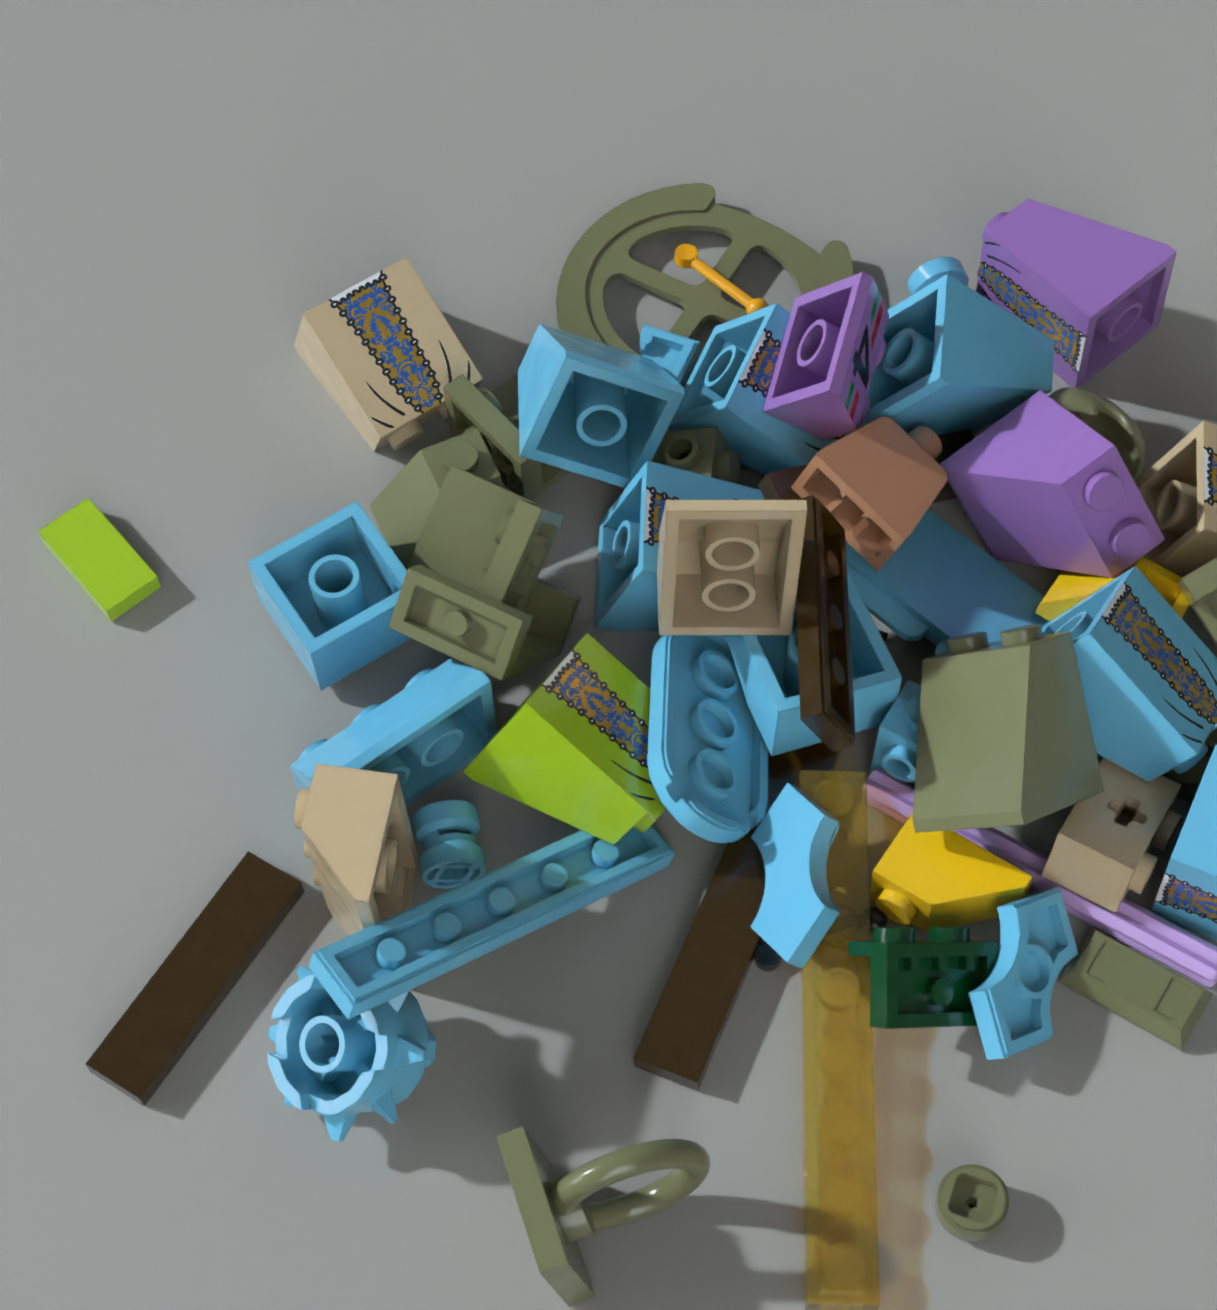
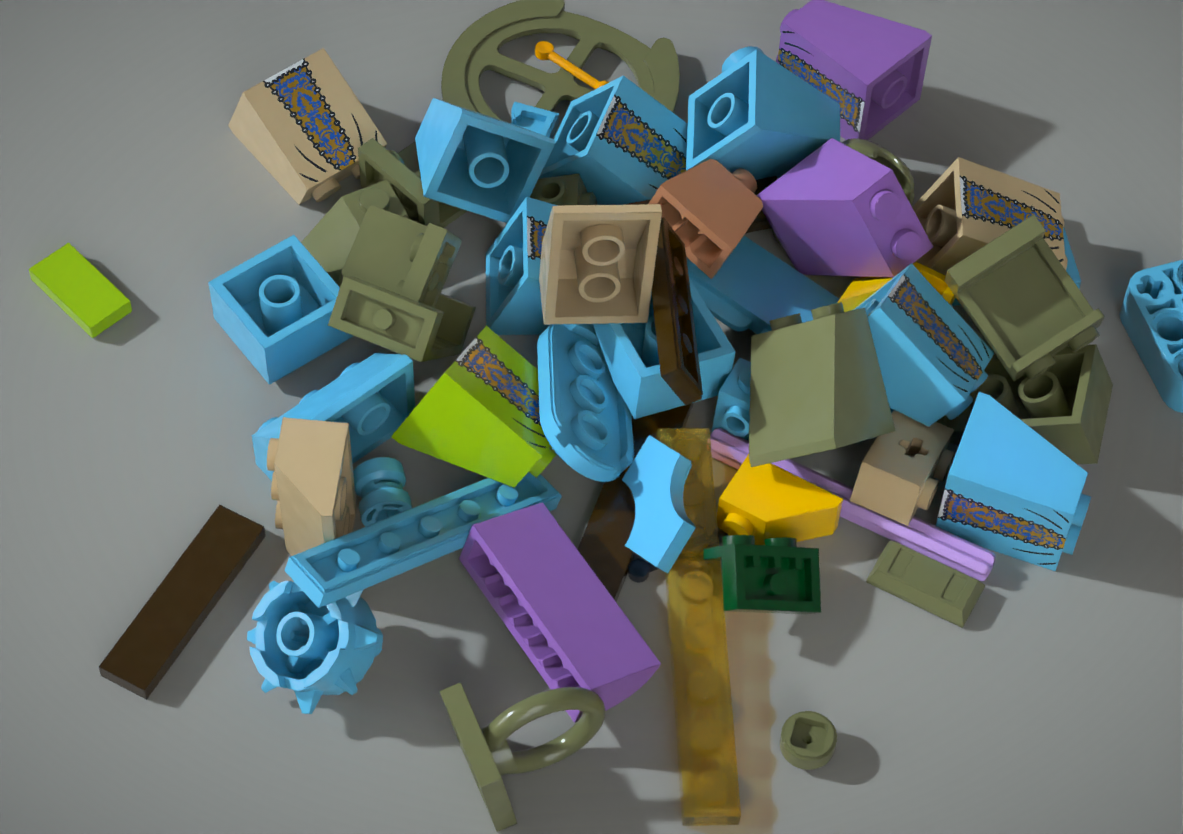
camera: 10 degrees left, 5 degrees down
(659, 1013) = (557, 606): none -> medium lavender brick
(829, 358) = (666, 115): medium lavender slope -> none
(1016, 995) = (835, 586): medium azure tile -> none

